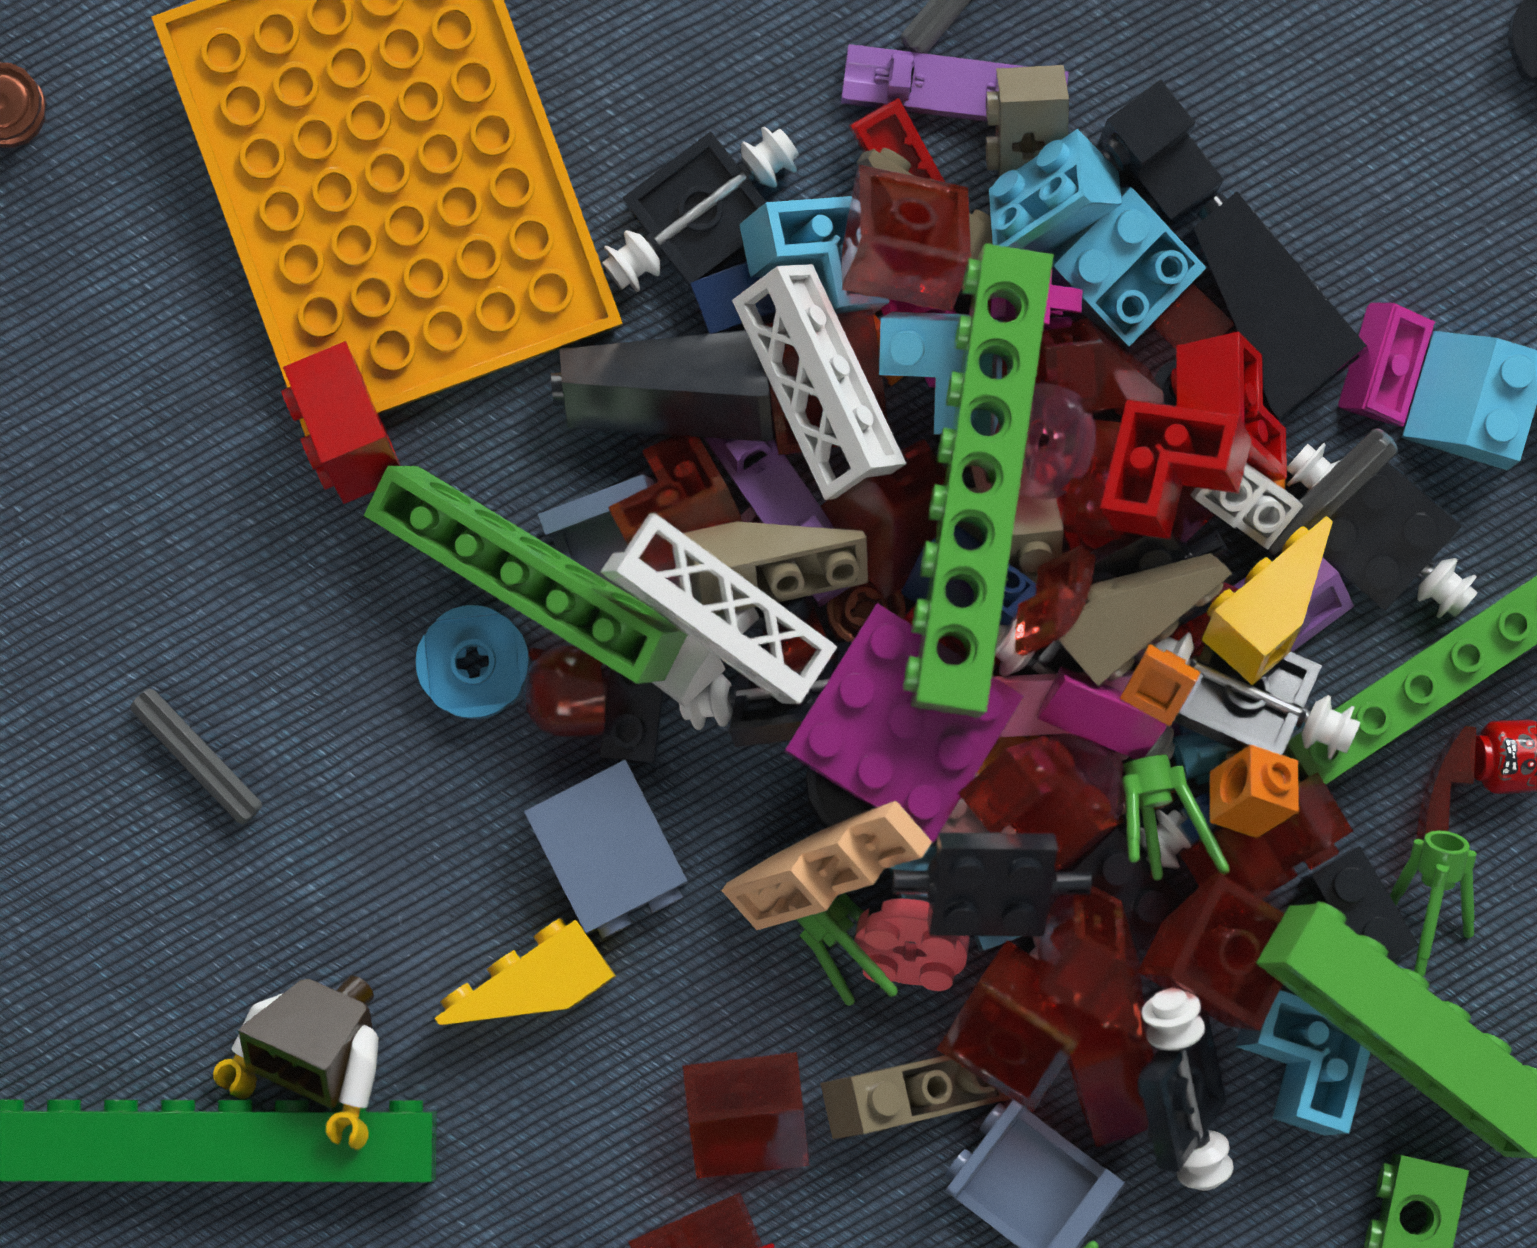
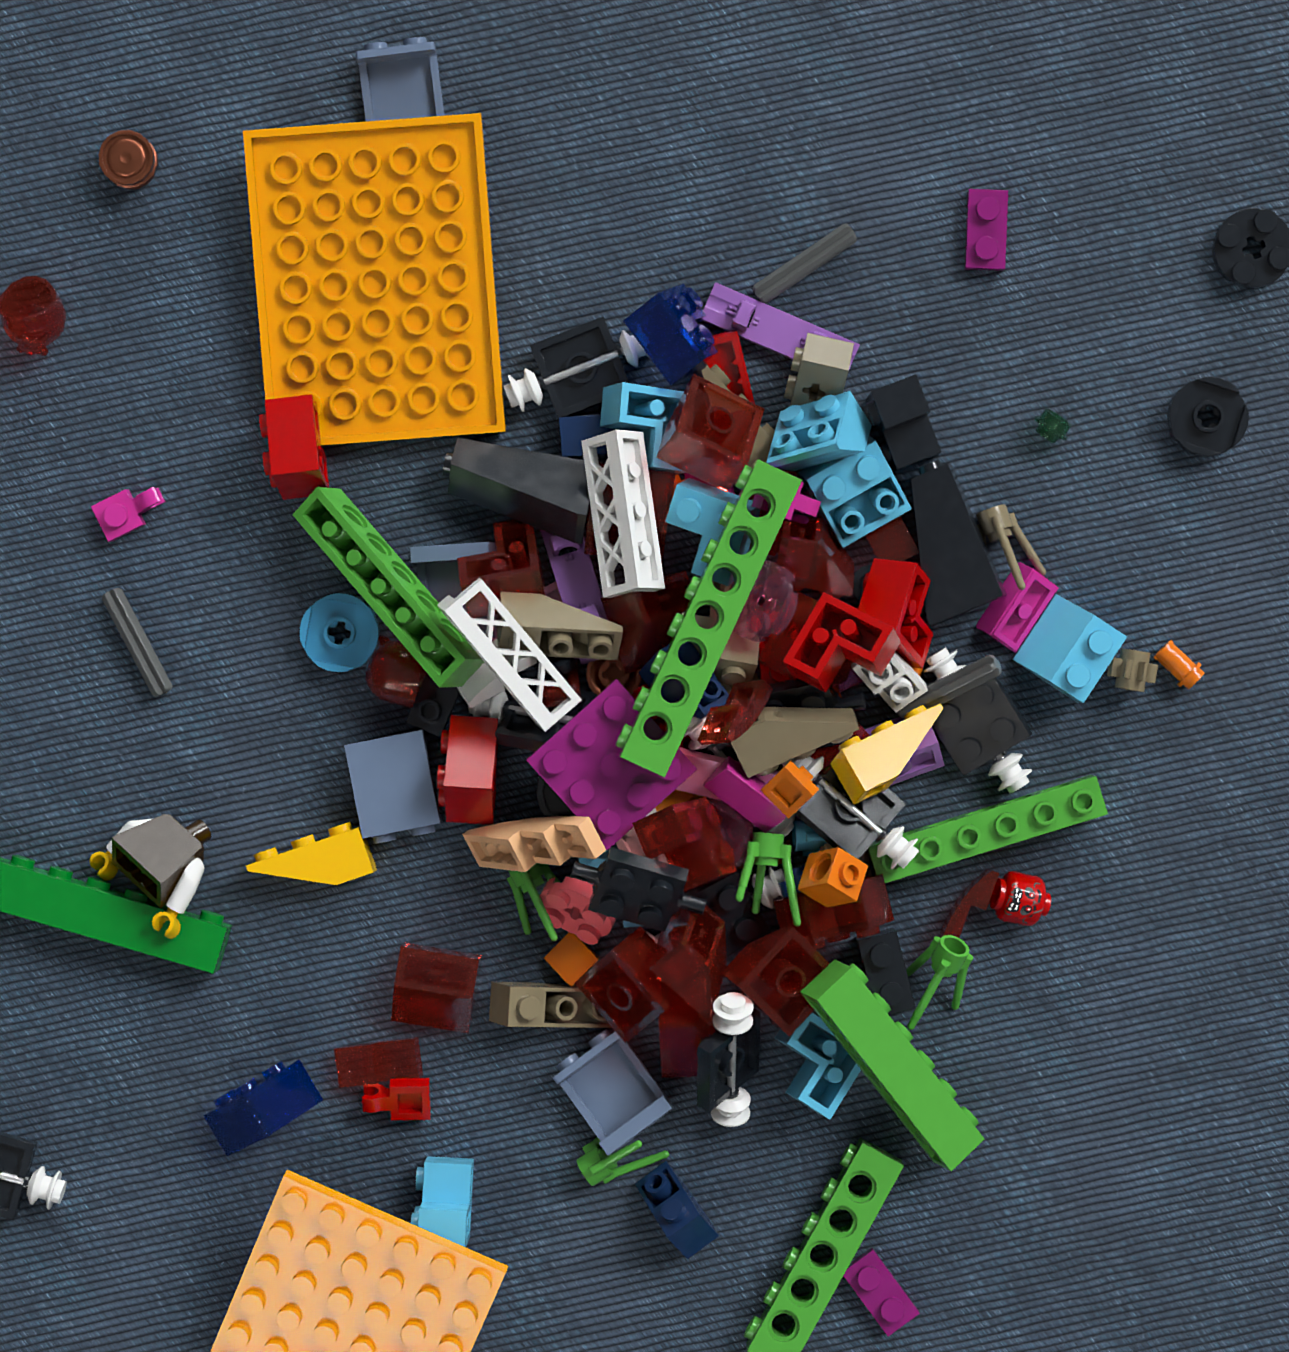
camera: 20 degrees right, 5 degrees up
(127, 586) = (122, 512): none -> dark pink plate
(710, 803) = (469, 777): none -> red brick
(812, 122) = (670, 332): none -> clear blue brick
(921, 1019) = (571, 958): none -> orange slope
(1329, 259) = (996, 525): none -> dark tan plant
(1360, 107) = (1052, 426): none -> clear green plate

